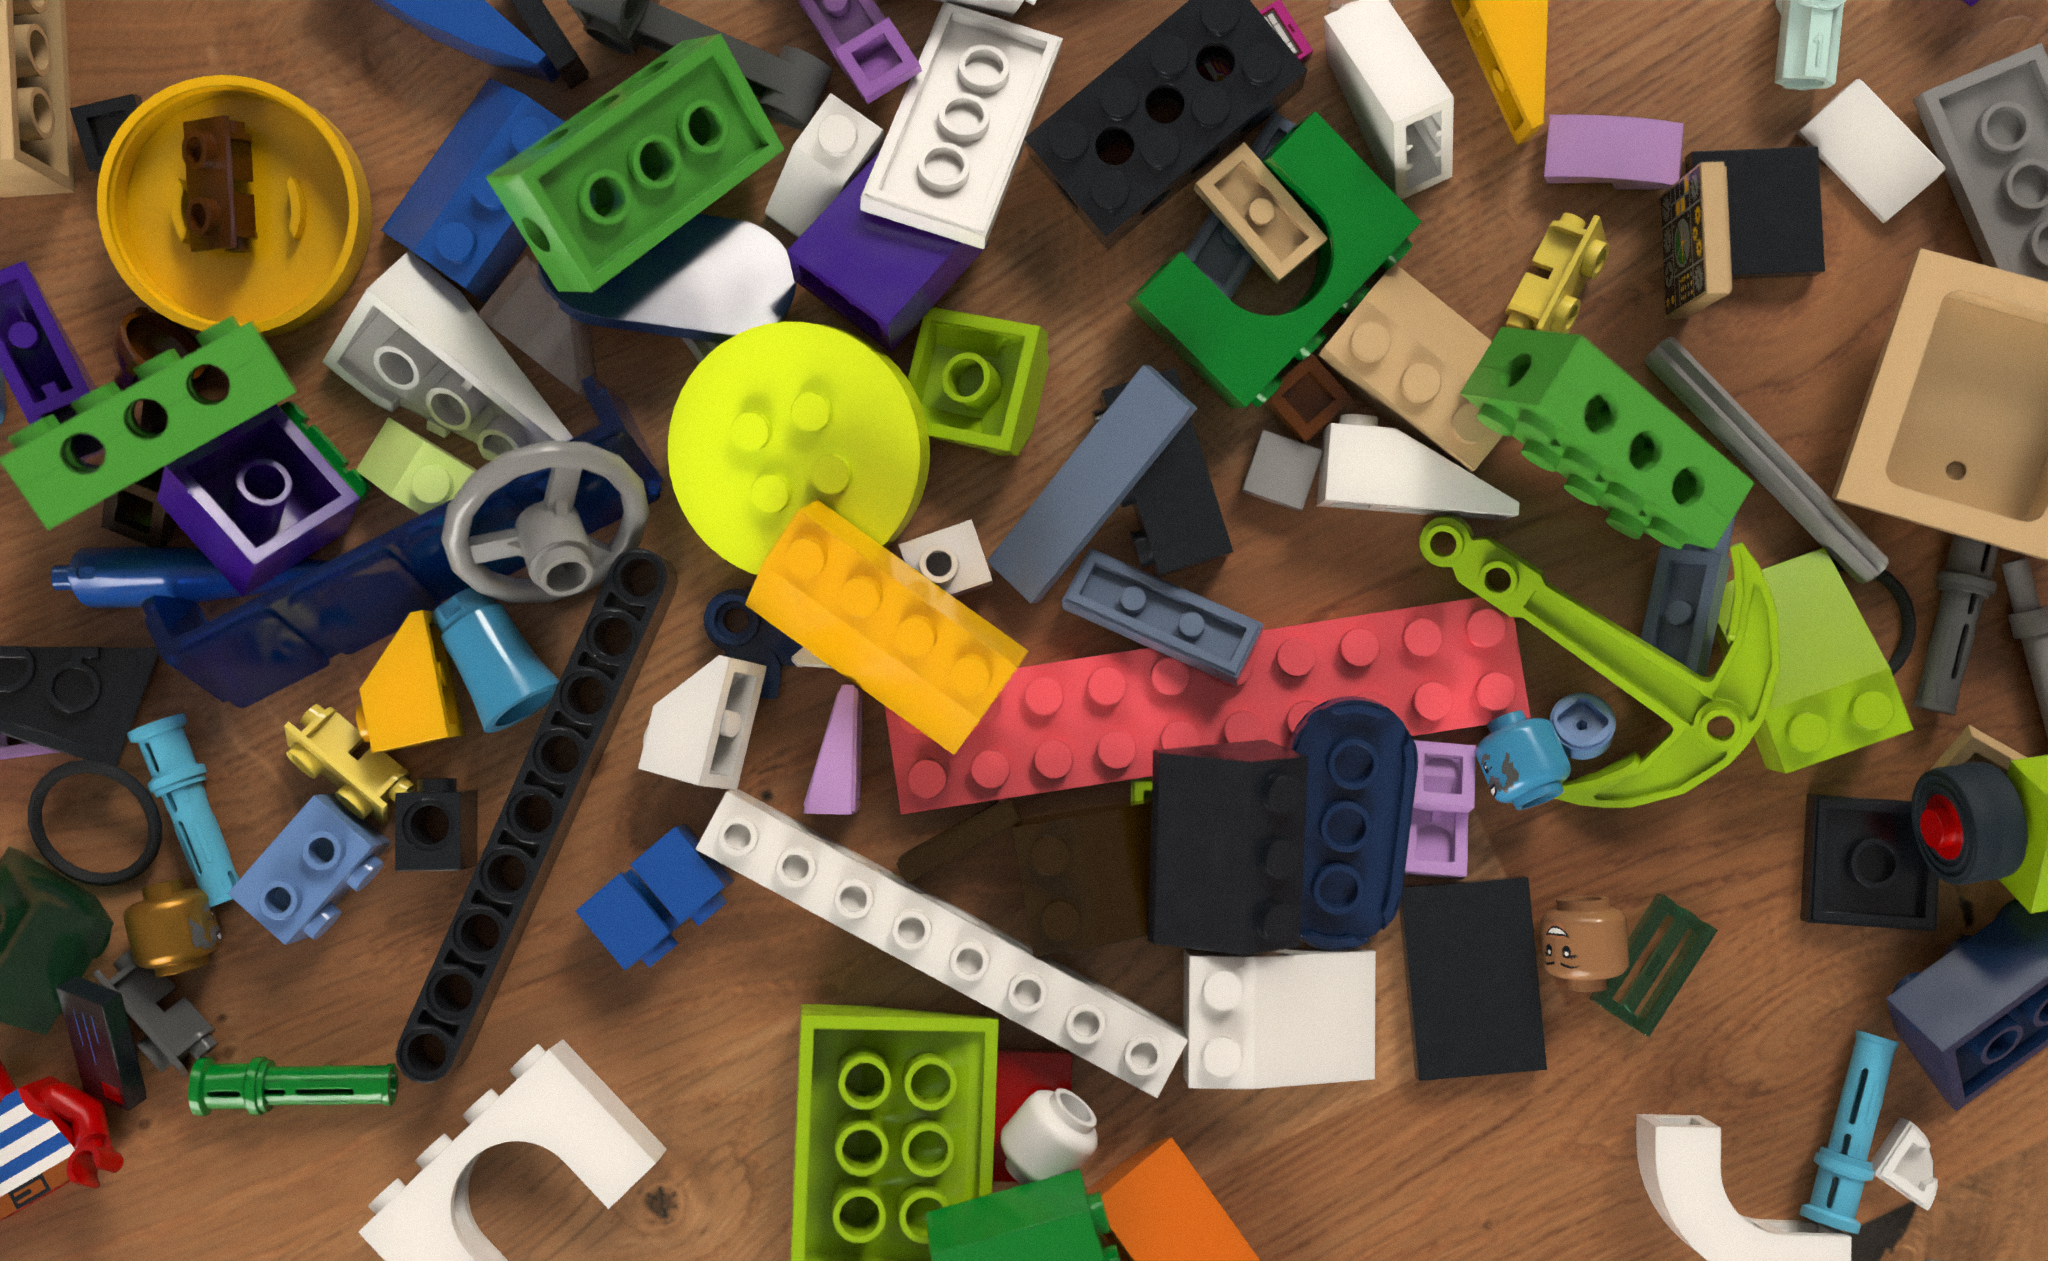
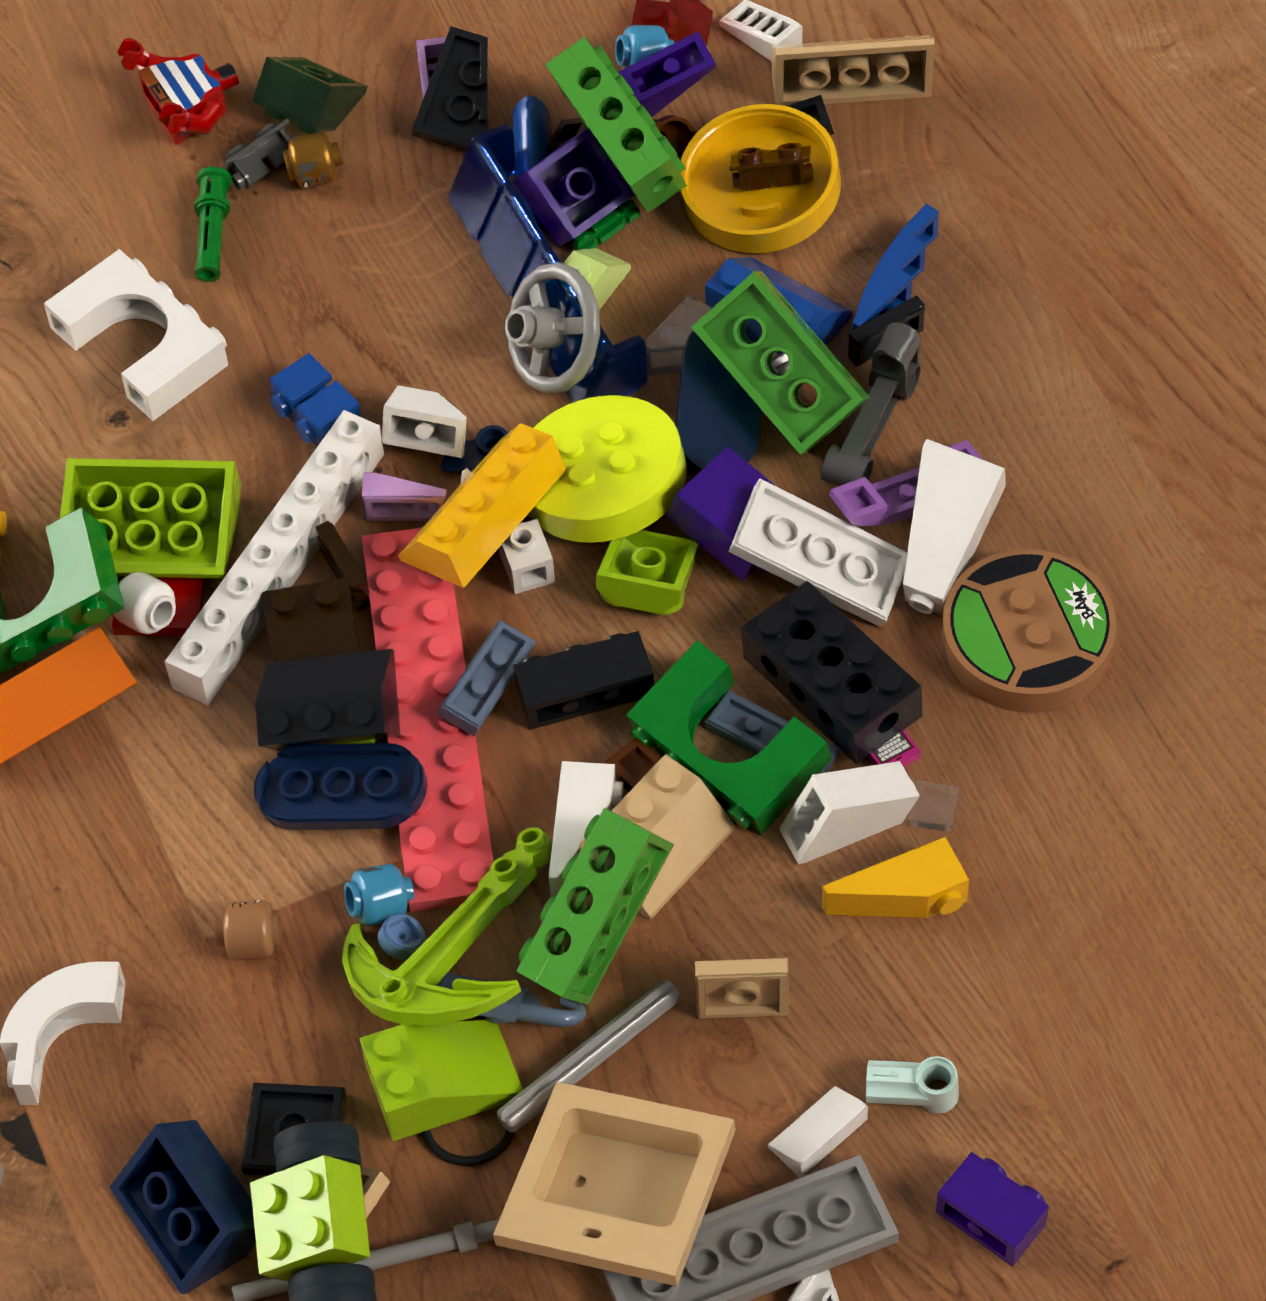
camera: 90 degrees right, 30 degrees down
(102, 1042) = (244, 126): black tile -> none
(132, 784) = (393, 143): black tyre -> none
(179, 783) = (402, 163): medium azure pin -> none
(311, 870) = (344, 227): medium blue brick -> none
(326, 749) = (397, 255): light yellow hinge -> none
(410, 691) = (456, 276): yellow slope -> none
(416, 847) = (366, 289): black brick -> none
(428, 351) = (669, 270): white wedge -> none
(493, 660) = (468, 315): dark azure plant -> none
(515, 835) = (375, 342): black beam -> none
(822, 164) = (801, 478): white slope -> none
(1091, 484) = (575, 625): sand blue tile -> none
(1260, 213) = (759, 725): tan plate -> none
(1278, 1018) = (211, 749): white slope -> none
(1281, 471) = (587, 748): light grey tile -> none
(1441, 810) = (344, 851): lavender slope -> none
(1472, 978) = (227, 866): black tile -> none
(1572, 258) = (710, 922): light yellow hinge -> none
(1614, 150) = (814, 958): lavender slope -> none
(1675, 976) = (202, 967): clear green tile -> none
(1772, 210) = (772, 1054): black tile -> none
(1844, 1162) = (81, 1103): medium azure pin -> none
(1907, 1163) = (73, 1153): white tile -> none
(1963, 587) = (489, 1186): dark grey pin -> none

